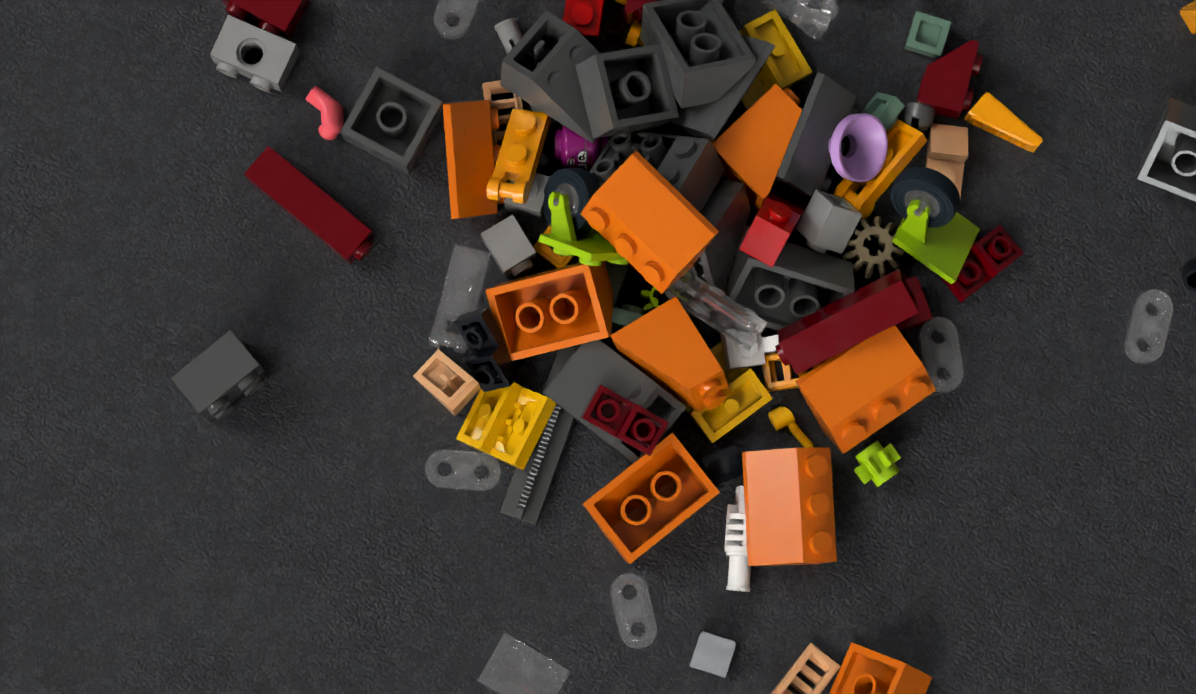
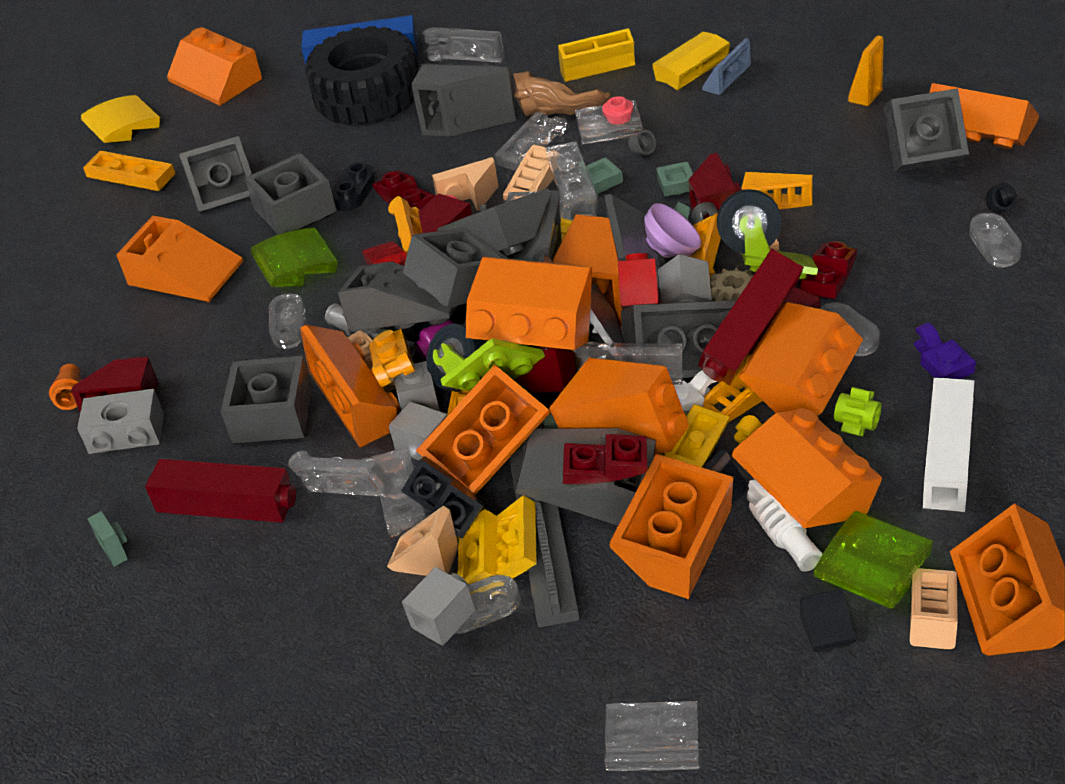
camera: 20 degrees left, 40 degrees down
(195, 204) = (109, 537): none -> sand green plate
(220, 377) = (187, 635): dark grey brick -> none
(331, 113) = (207, 428): coral arm -> none
(414, 262) = (341, 475): none -> clear plate
(426, 471) = (439, 605): none -> light grey brick
(634, 610) = (720, 629): clear plate -> none
(786, 618) = (873, 559): none -> clear neon green slope
(926, 542) = (948, 445): none -> white brick
(996, 443) = (940, 358): none -> dark purple plate

